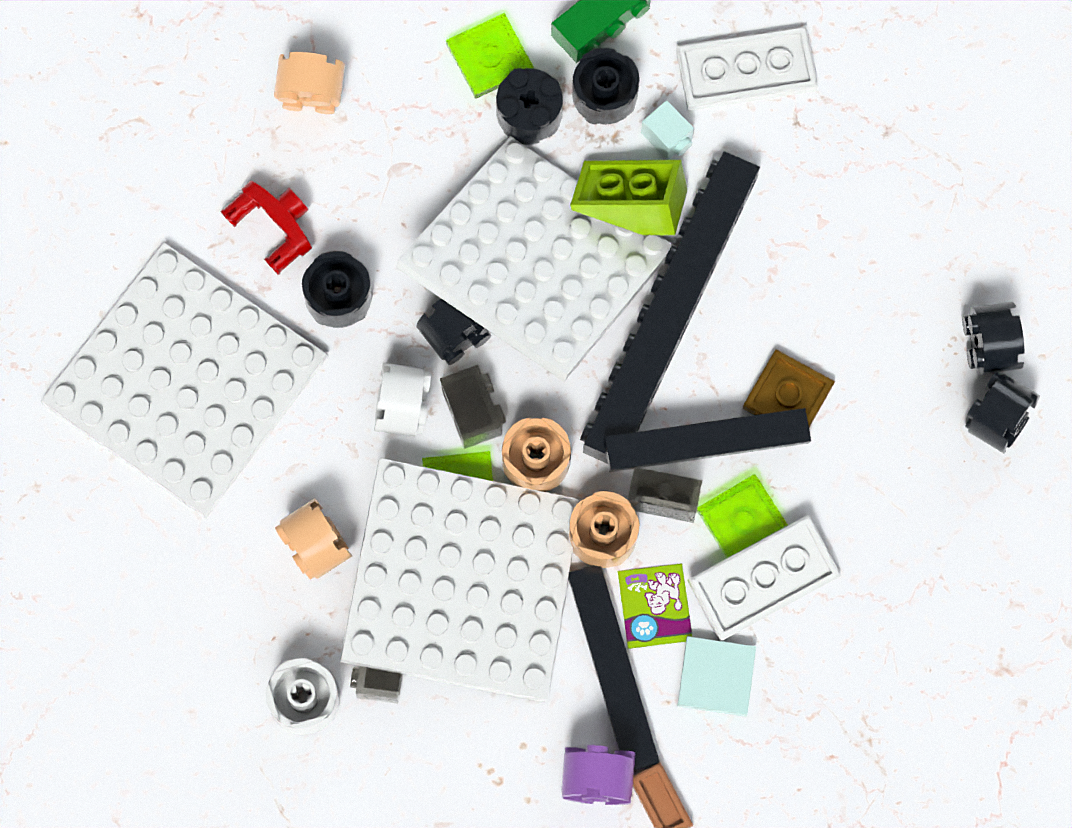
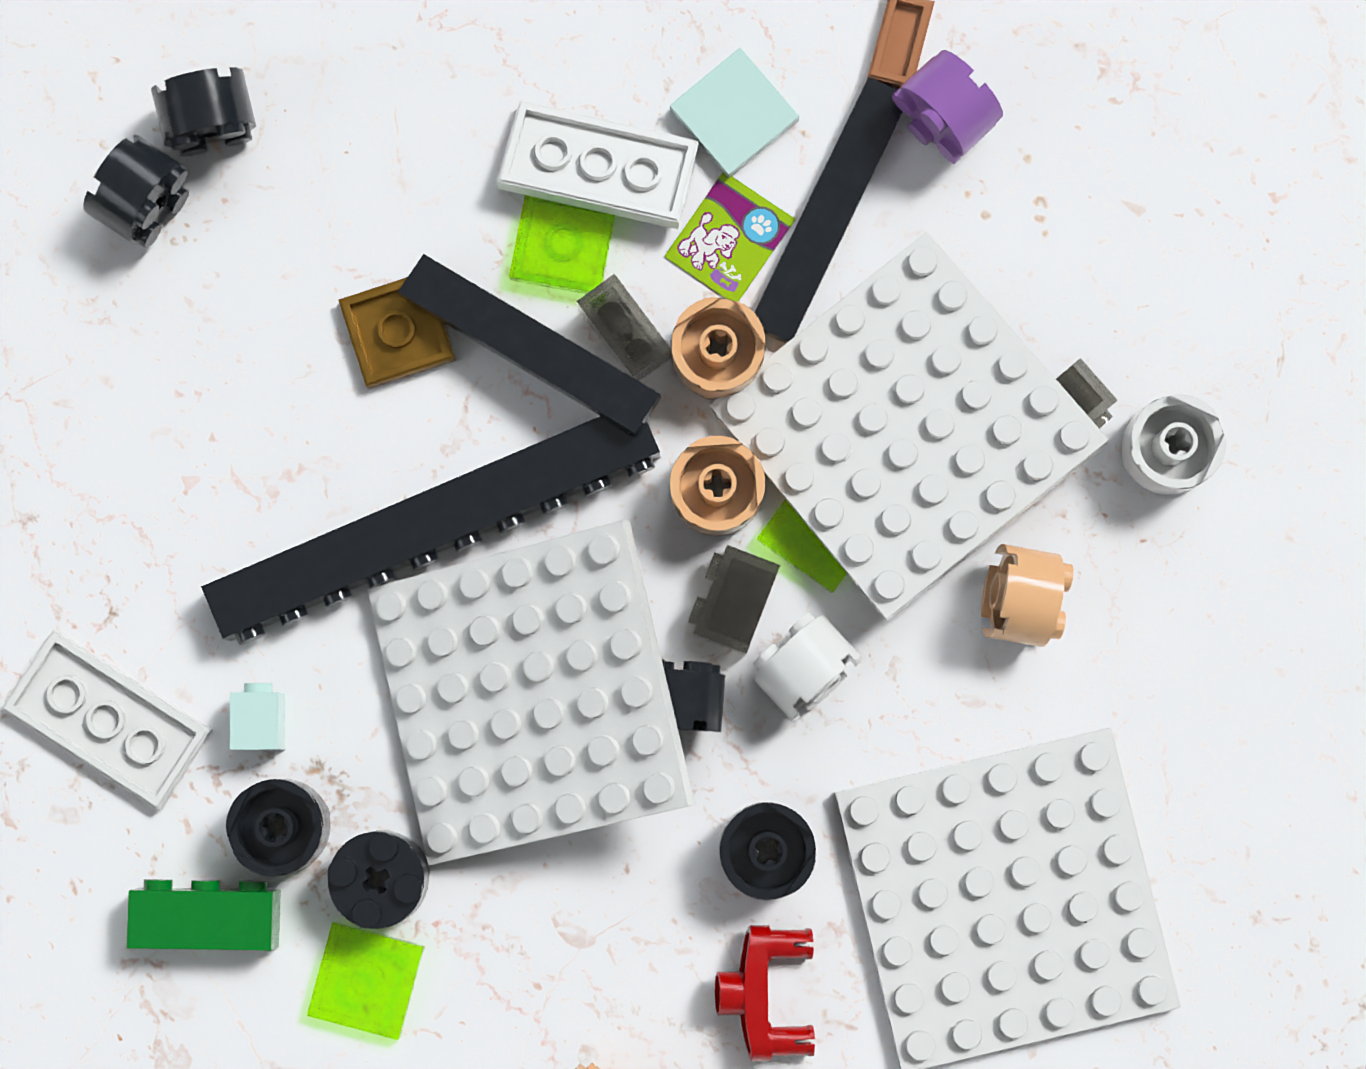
camera: 135 degrees left, 10 degrees up
(632, 194) = (363, 678): lime slope -> none

